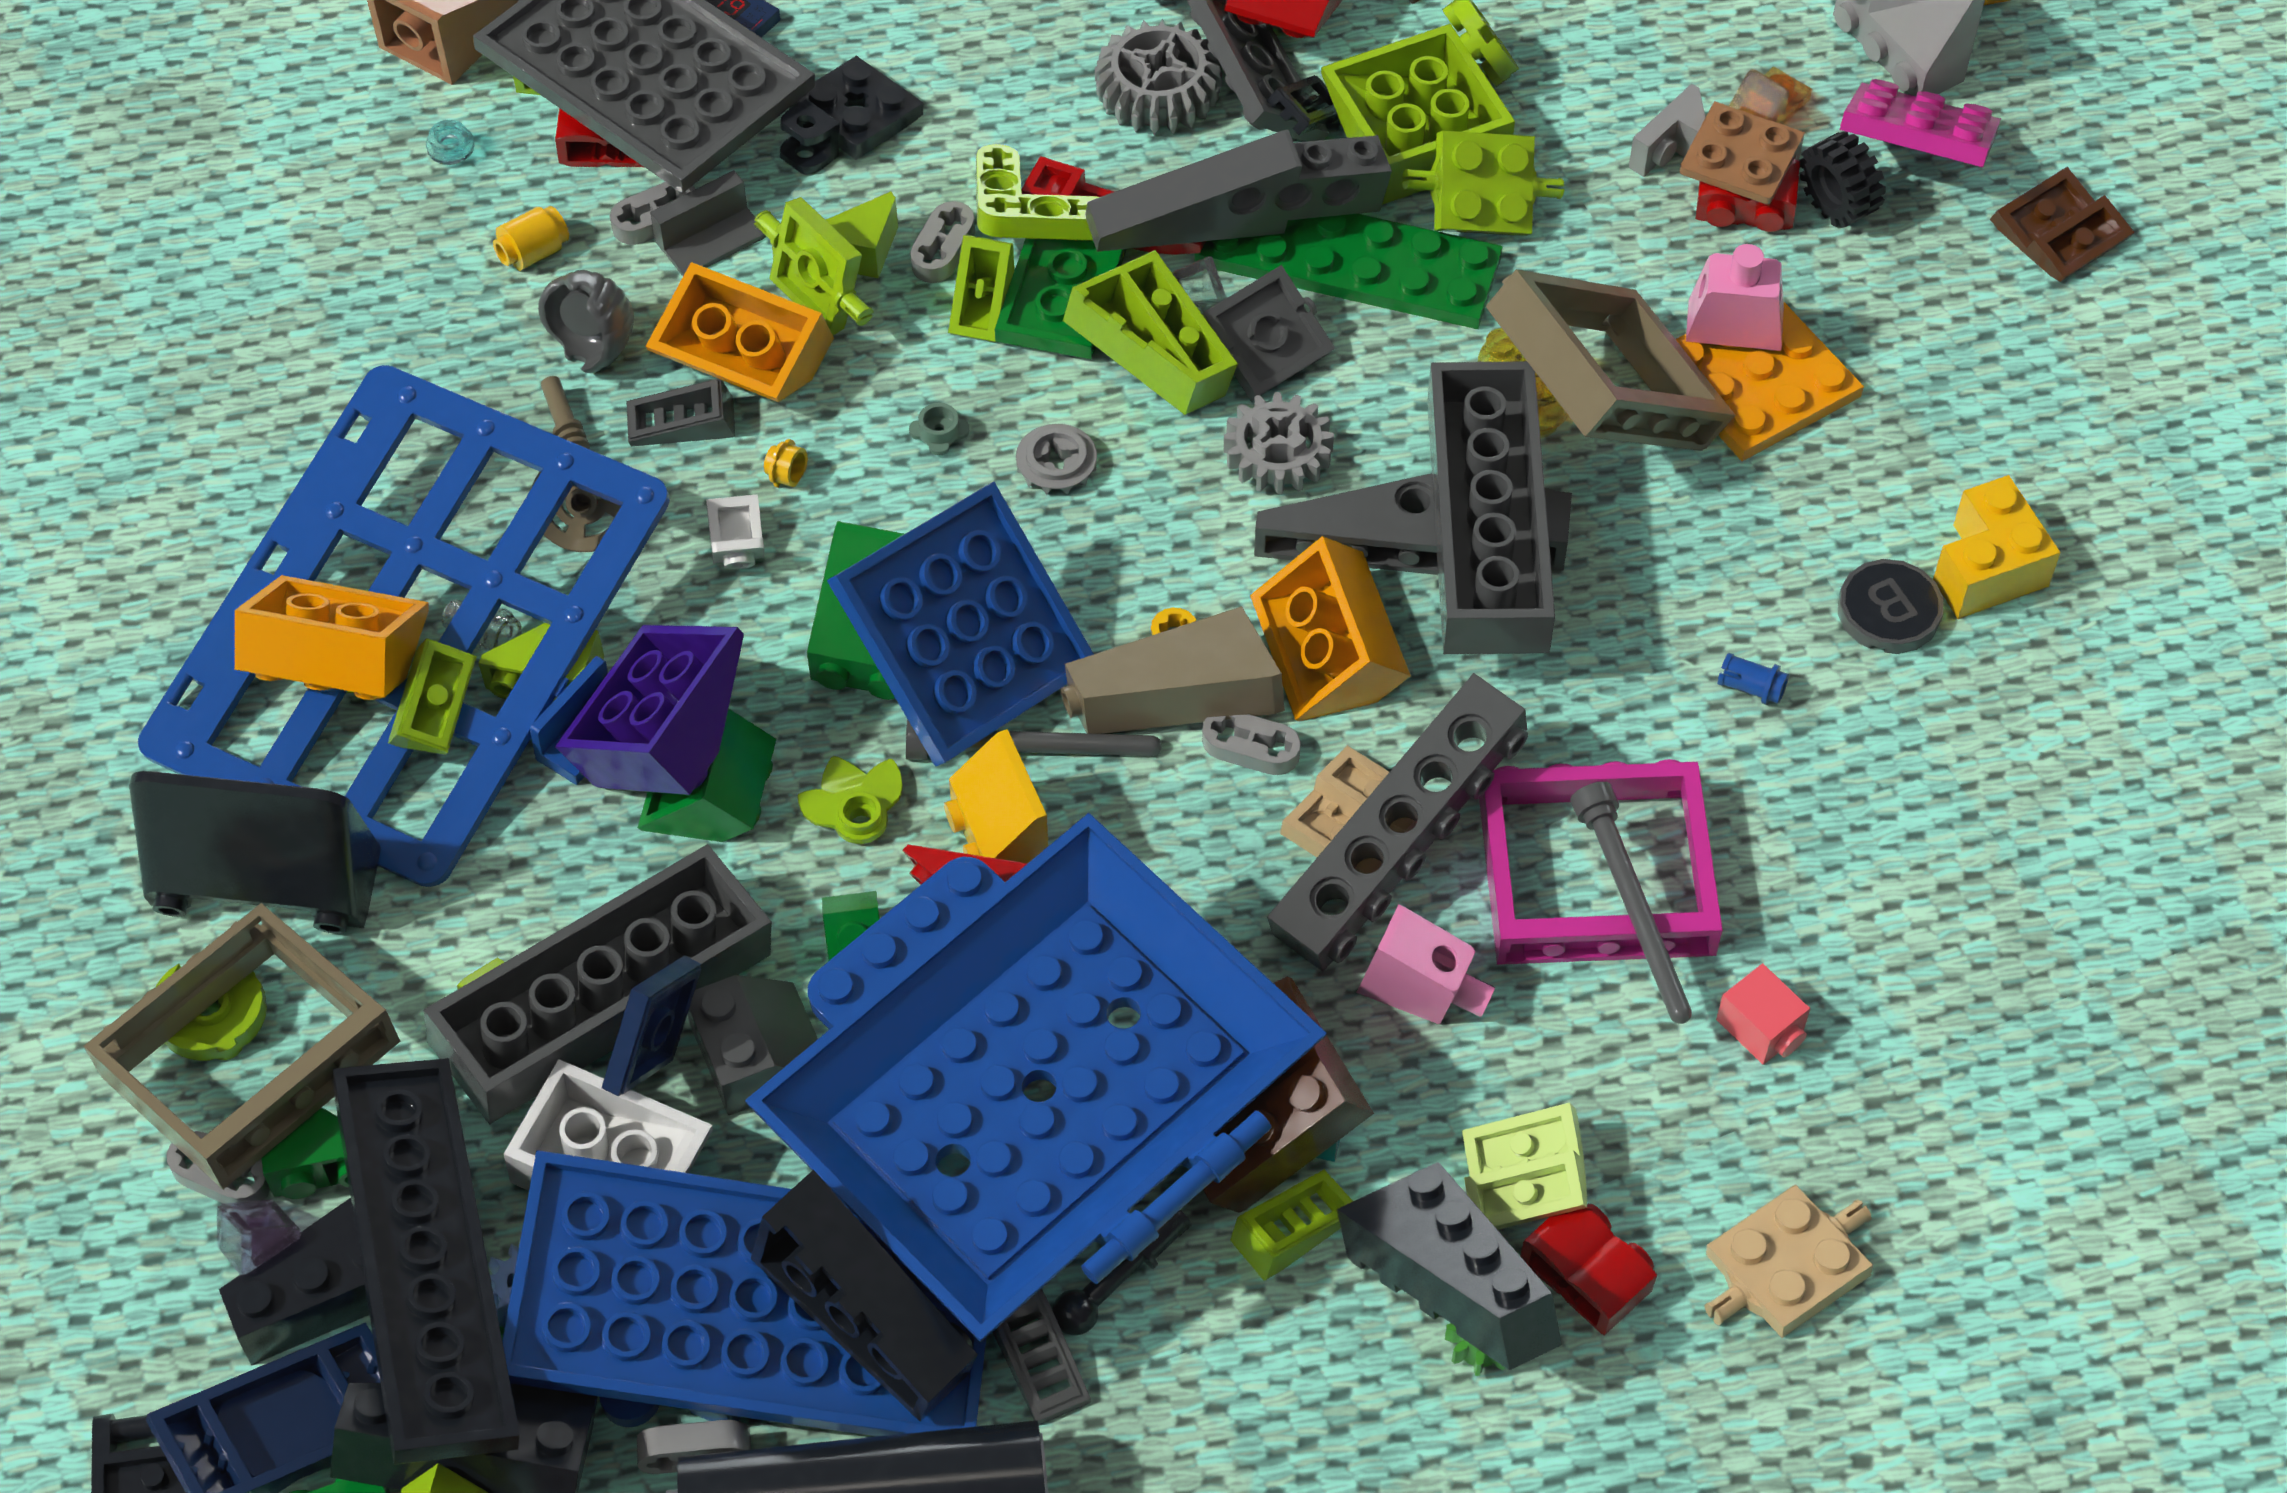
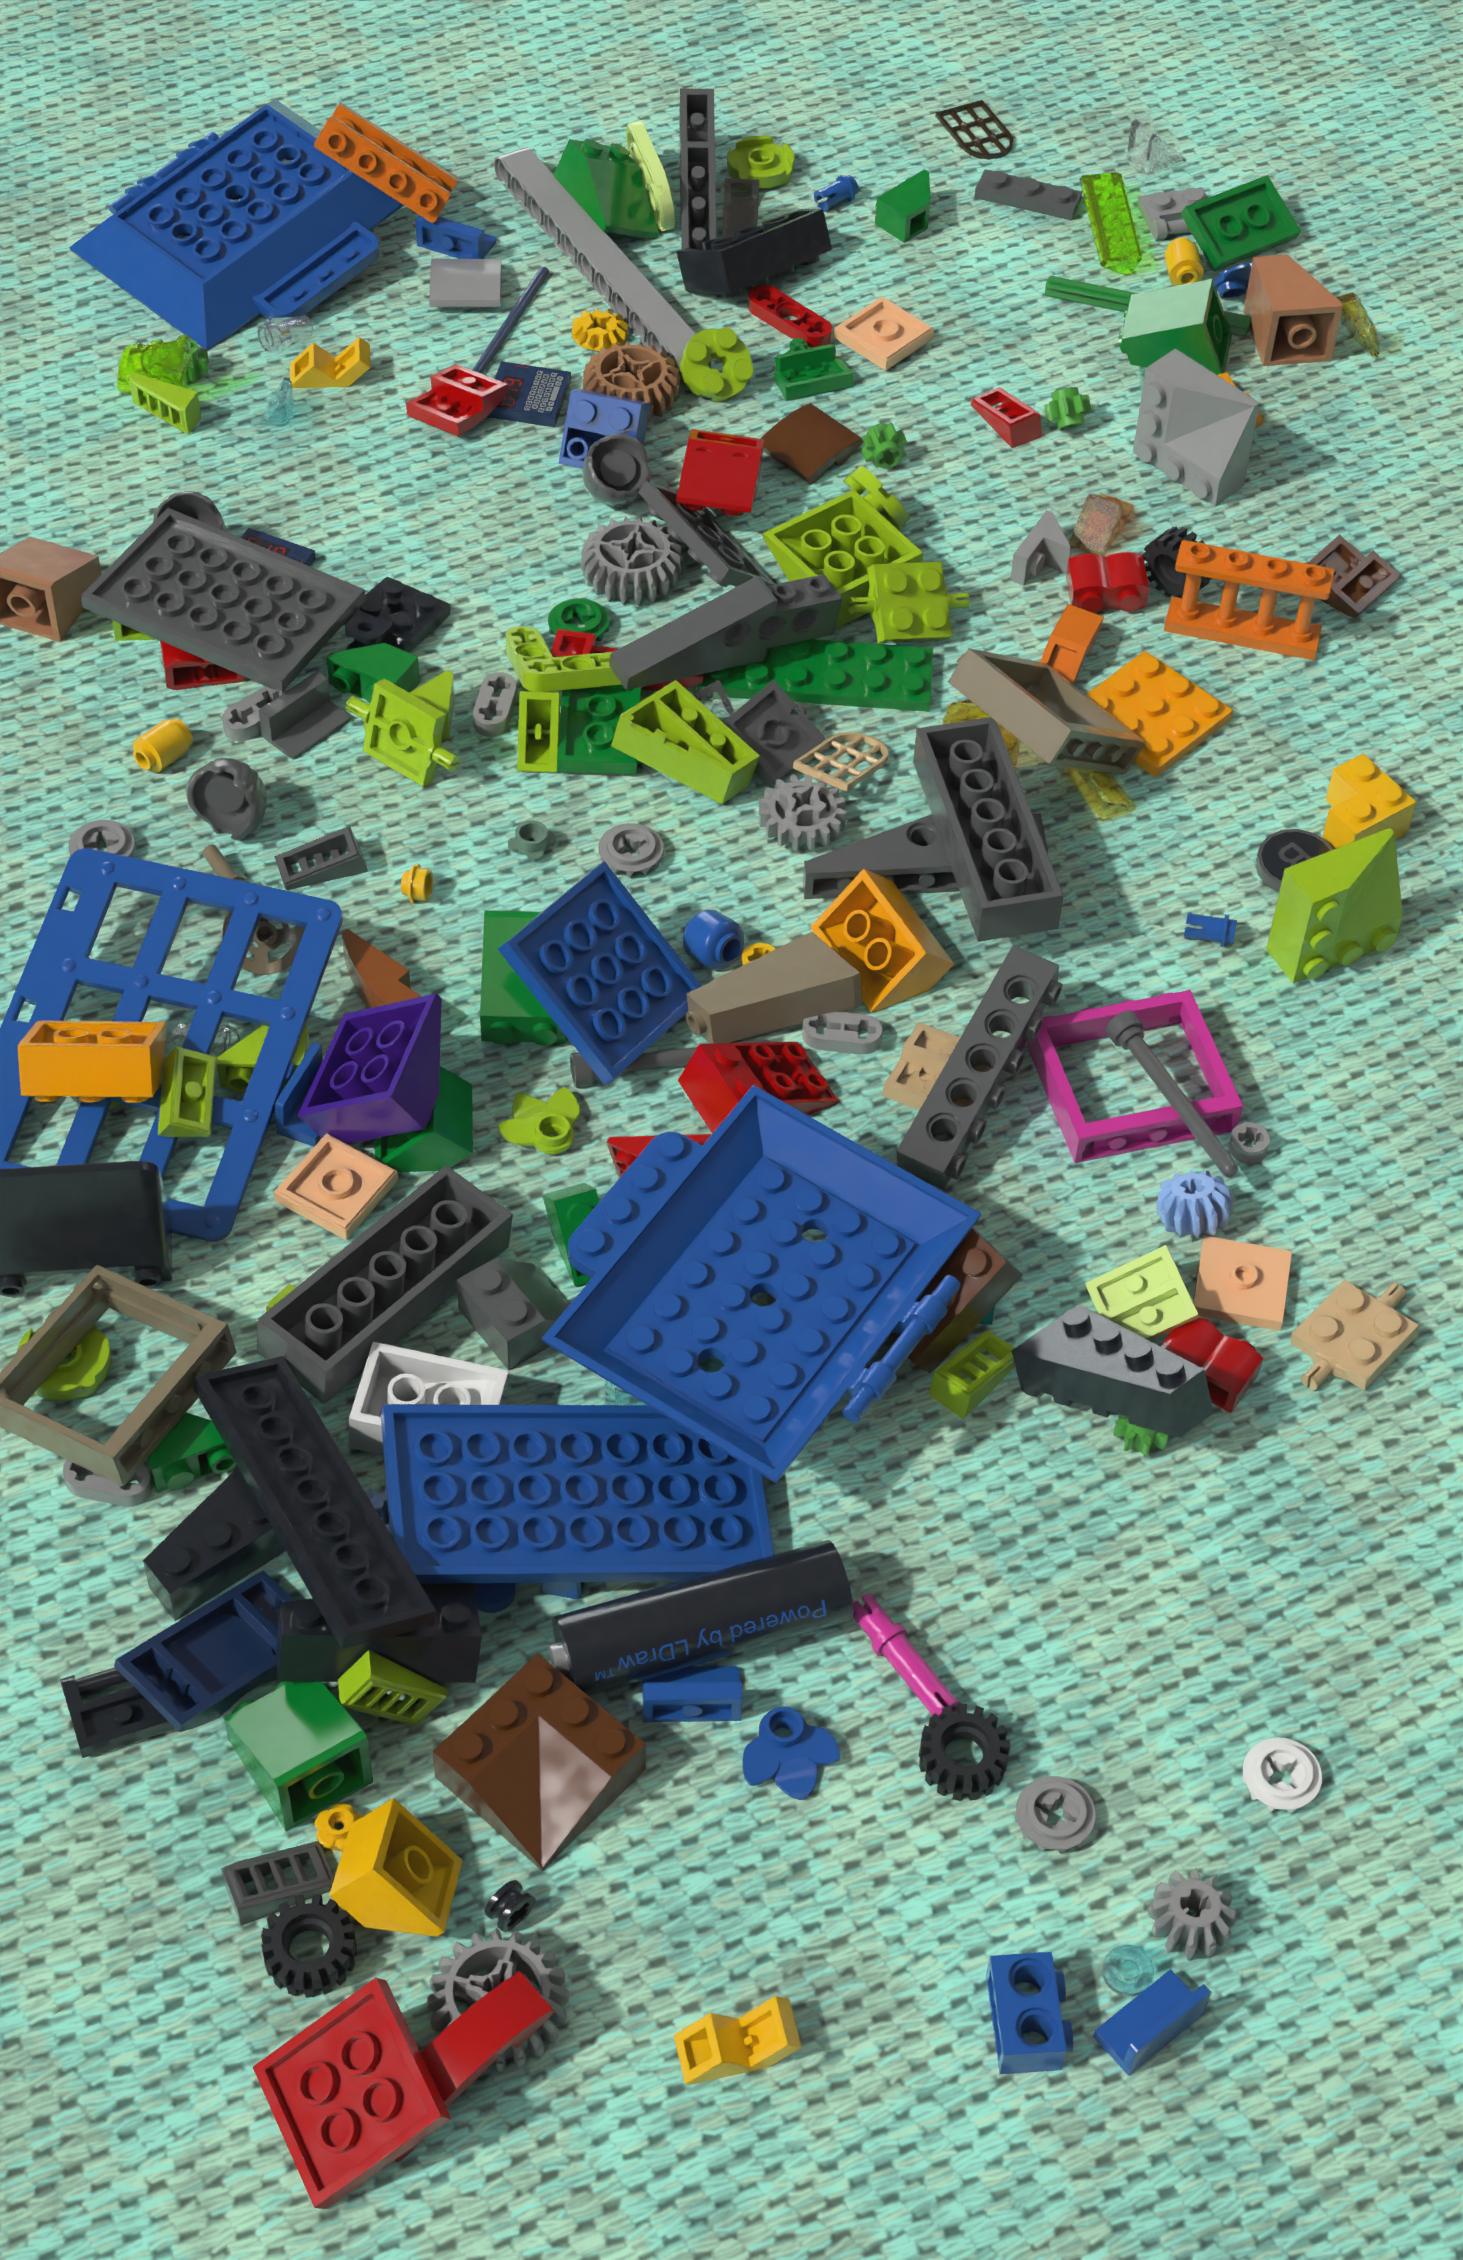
camera: 15 degrees left, 5 degrees down
(253, 1232) = (154, 1517): clear purple slope -> none
(413, 344) = (114, 834): none -> light grey gear
(449, 142) = (73, 684): clear light blue plate -> none
(583, 842) = (336, 1186): none -> light nougat plate
(651, 1025) = (443, 1302): dark blue tile -> none
(662, 1445) = (533, 1618): light grey beam -> none
(707, 585) = (375, 974): none -> dark orange slope
(735, 531) = (393, 935): white bracket -> none
(741, 334) = (358, 789): light orange slope -> none
(806, 172) = (361, 667): none -> green slope
(861, 1296) = (667, 1469): black wedge -> none
(997, 804) = (664, 1098): yellow slope -> none
(1056, 1348) = (807, 1477): dark grey slope -> none
(1078, 1309) = (825, 1463): black pin -> none
(1089, 136) = (586, 611): none -> green gear
(1122, 595) = (713, 939): none -> blue head
(1136, 789) = (726, 1071): none -> red slope
(1306, 122) = (757, 567): black tile -> none
(1344, 353) = (833, 741): none -> tan window
(1423, 970) = (1024, 1171): bright pink torso -> none
(1627, 1050) = (1194, 1204): none -> light blue gear
(1663, 1164) = (1242, 1282): none -> light nougat plate
(1667, 475) = (1100, 792): none -> clear yellow slope
(1677, 264) = (1071, 641): none -> orange slope
(1712, 965) = (1252, 1131): none -> light grey bush
(1738, 301) = (1128, 657): bright pink torso -> none
(1742, 153) = (1099, 554): medium nougat bracket -> none
(1764, 1015) = (1288, 1163): coral brick -> none
(1905, 273) = (1243, 627): none -> orange fence
(1915, 683) = (1337, 907): none -> lime slope
(1921, 122) = (1226, 515): dark pink plate -> none

